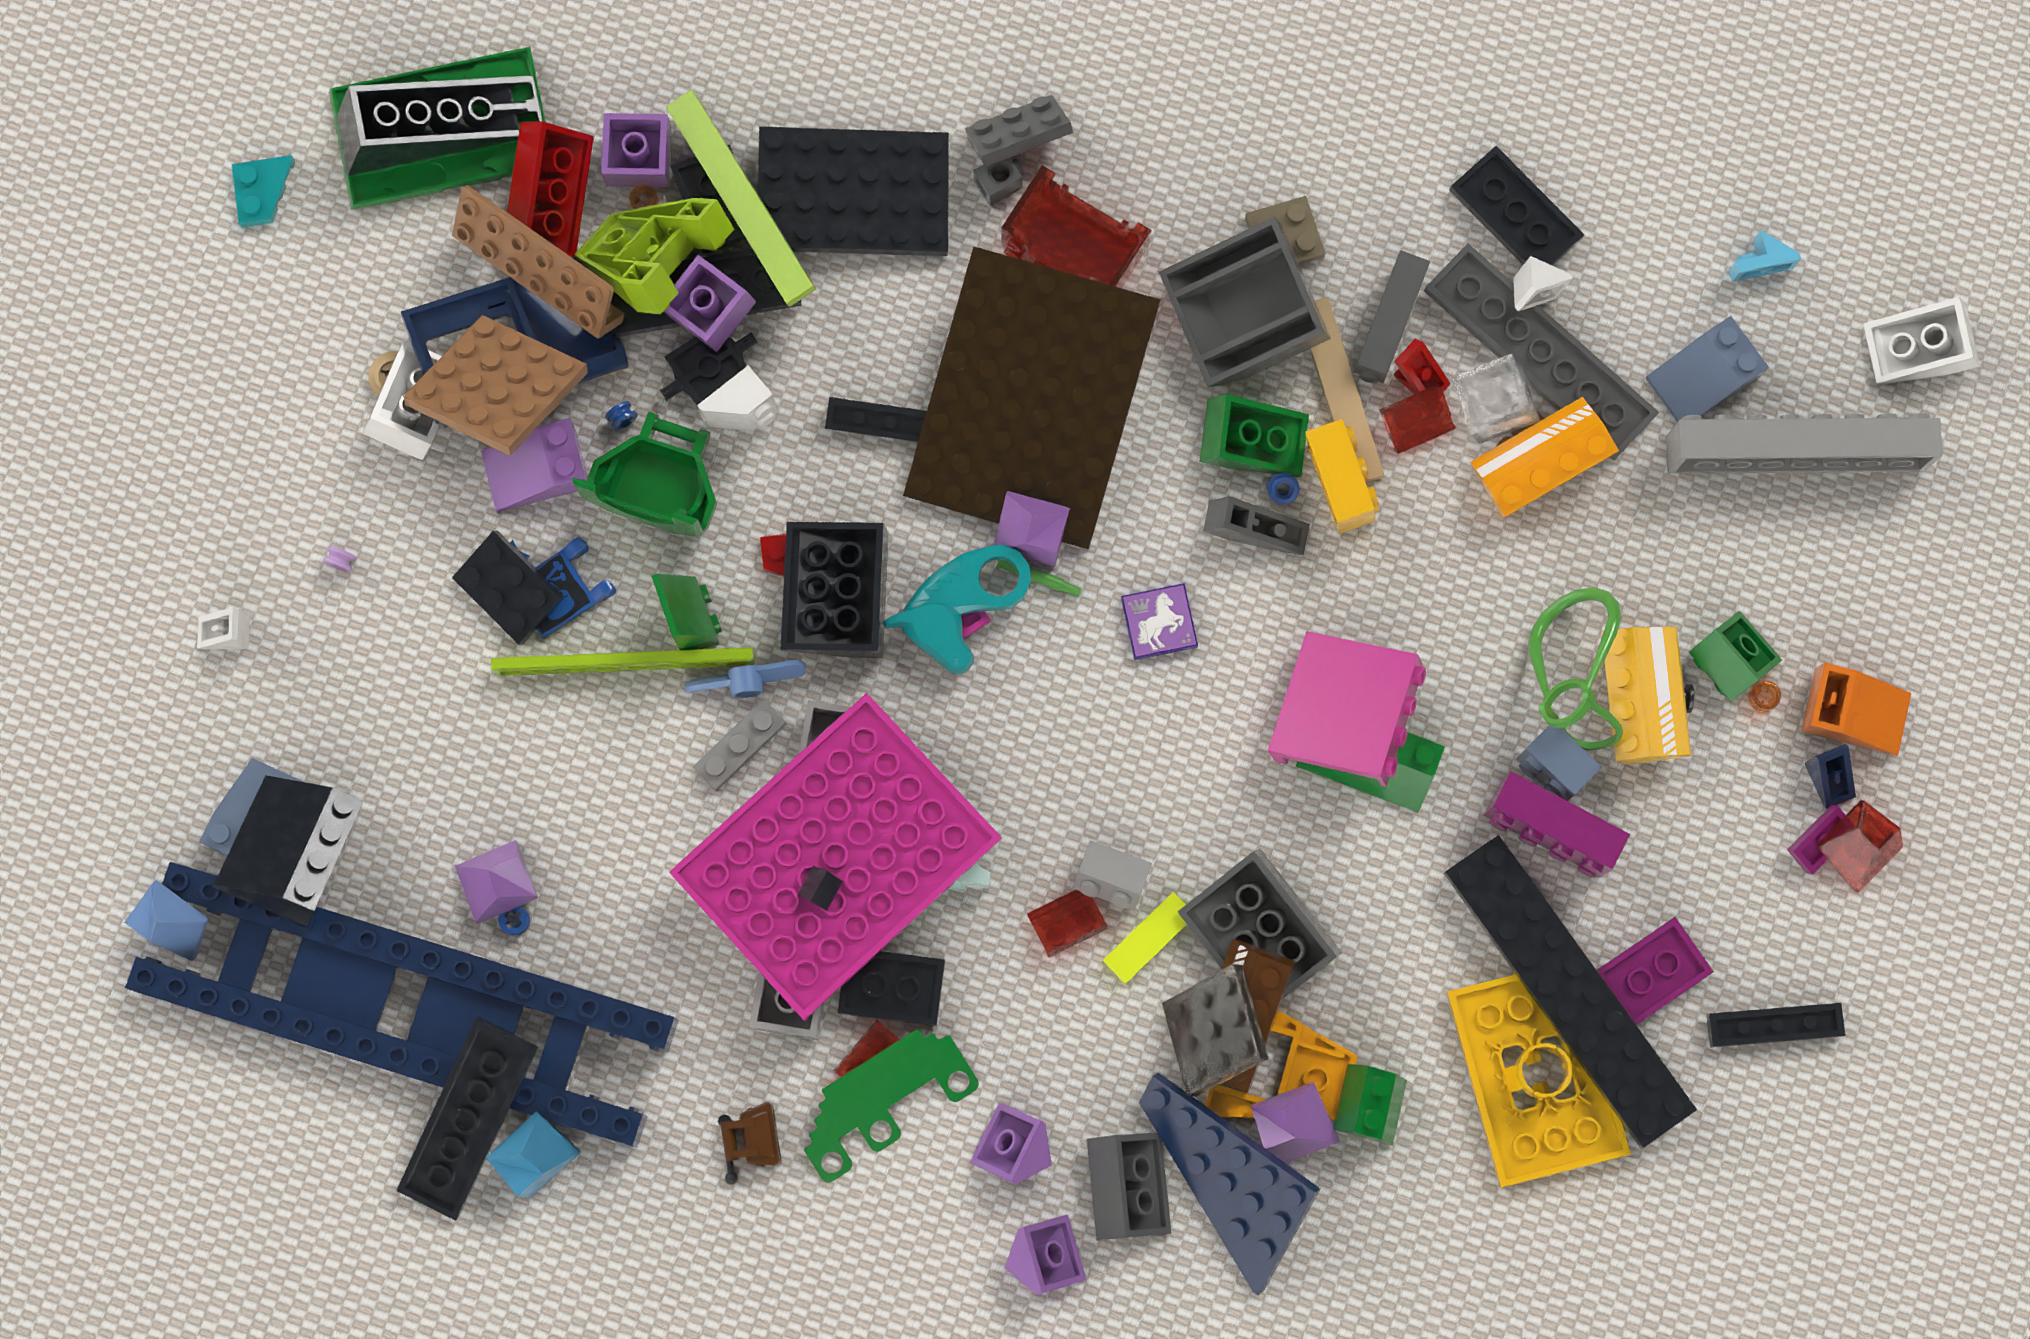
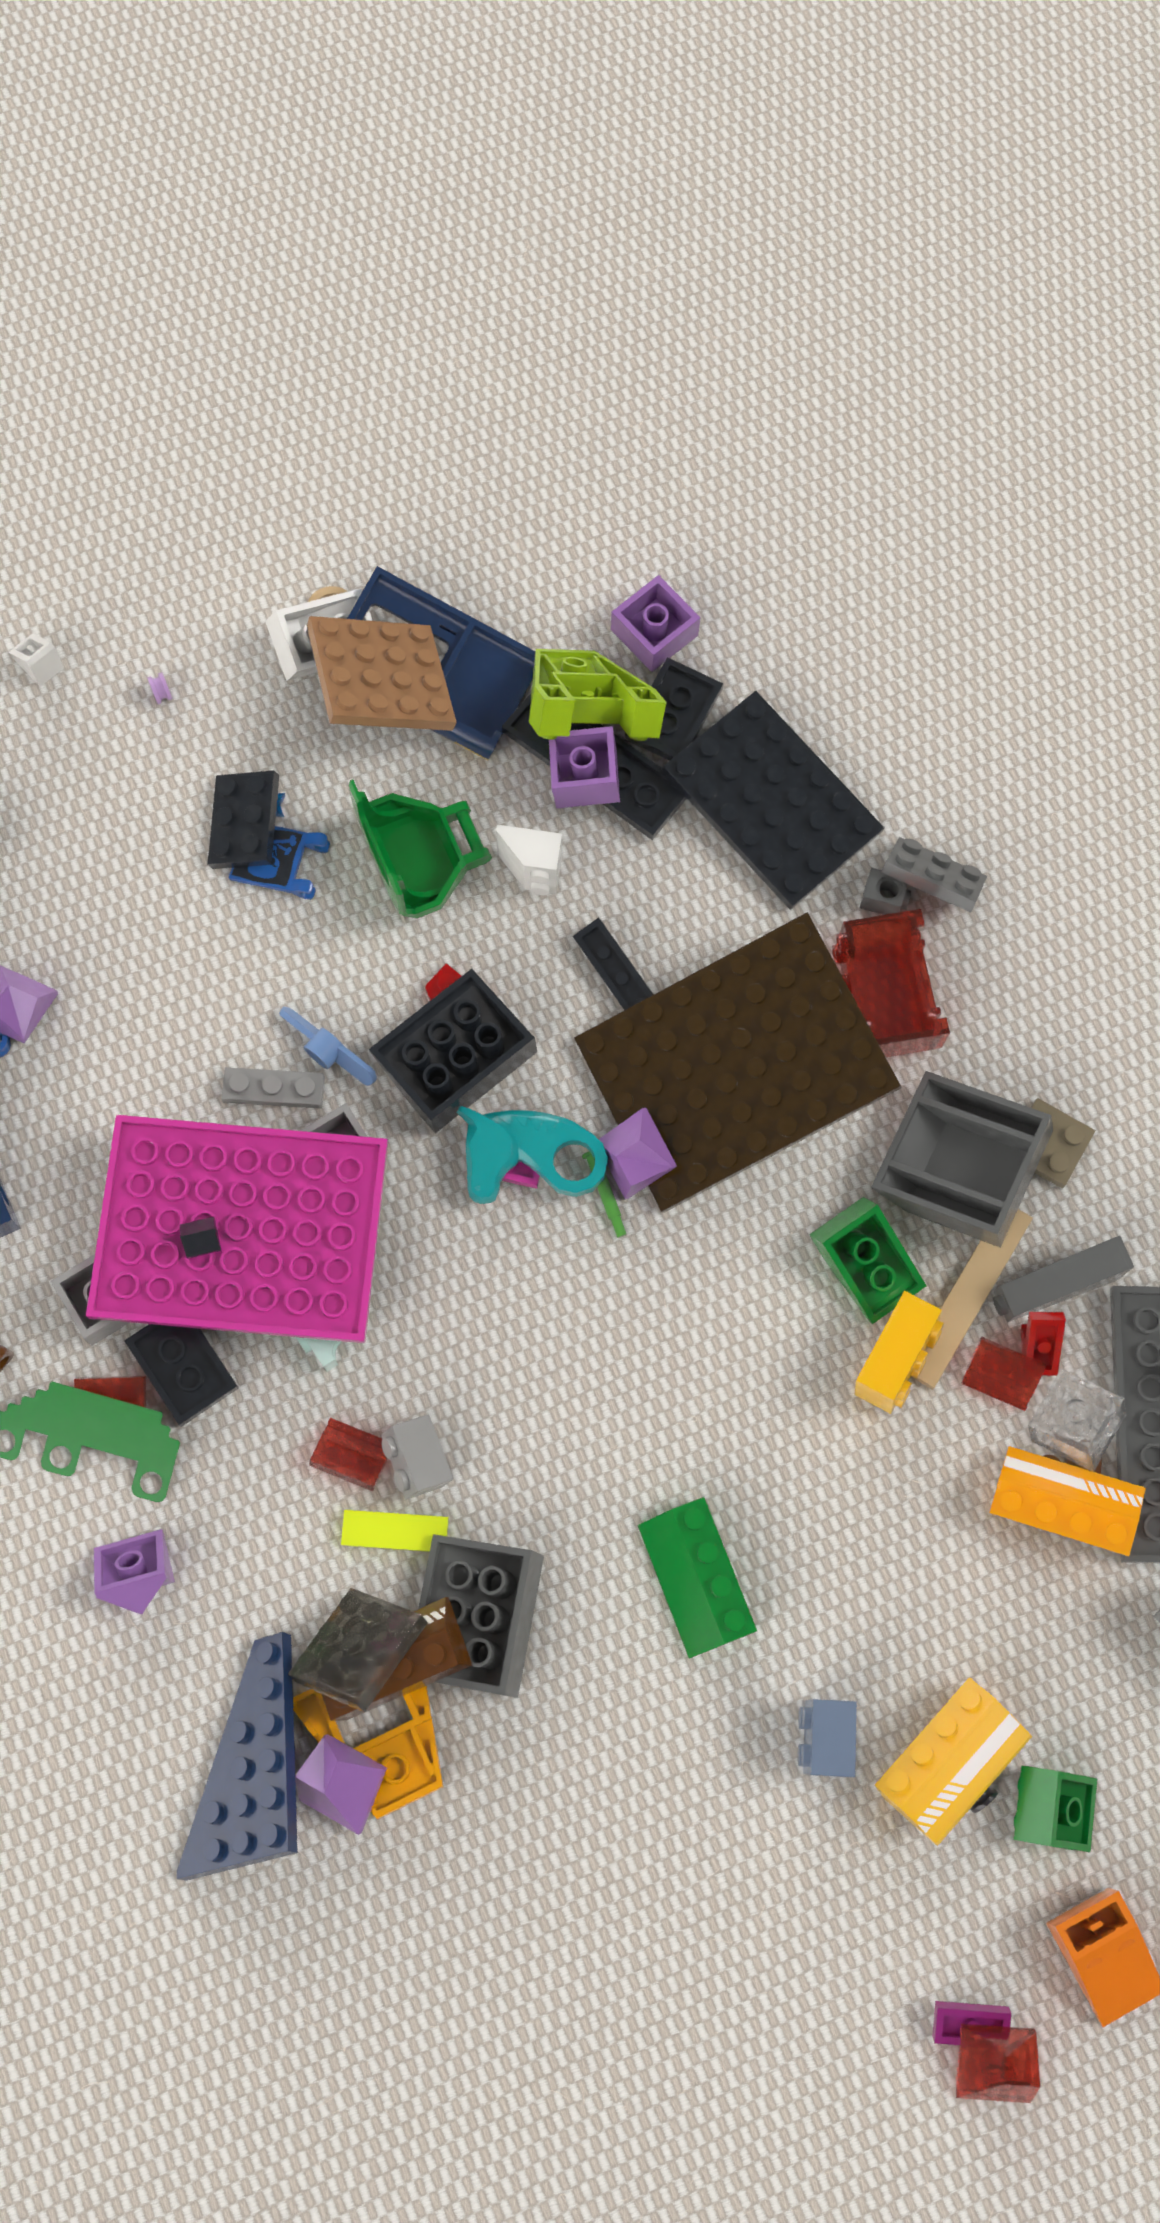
camera: 45 degrees right, 5 degrees down
(259, 188) = (385, 407): teal wing -> none
(434, 126) = (545, 484): piece -> none
(535, 263) = (499, 627): medium nougat bracket -> none
(538, 468) = (357, 754): medium lavender slope -> none
(551, 182) = (566, 590): red slope -> none
(621, 415) = (447, 786): blue bush -> none
(623, 661) = (262, 949): lime tile -> none
(641, 190) = (629, 654): clear orange bush -> none
(687, 611) = (334, 955): green slope -> none
(702, 370) = (534, 808): black plate -> none
(741, 198) = (687, 724): lime tile -> none
(1046, 1256) = (64, 1676): medium lavender slope -> none
(1128, 1186) = (177, 1693): dark grey slope -> none
(1159, 621) = (654, 1316): tile -> none
(1255, 526) = (798, 1323): dark grey slope -> none
(1290, 495) = (838, 1318): blue plate -> none
(1347, 706) = (717, 1523): dark pink panel -> none
(1370, 1103) = (410, 1833): green slope -> none
(1553, 1132) = (520, 2010): yellow plate -> none
(1556, 825) = (777, 1784): magenta brick -> none
(1570, 992) = (648, 1923): black plate -> none
(1588, 697) = (899, 1711): bright green animal -> none
(1655, 970) = (730, 1977): magenta plate -> none
(1757, 689) = (1045, 1853): clear orange bush -> none
(1775, 1025) = (779, 2126): black plate -> none
(1832, 776) = (1032, 1985): dark blue slope -> none

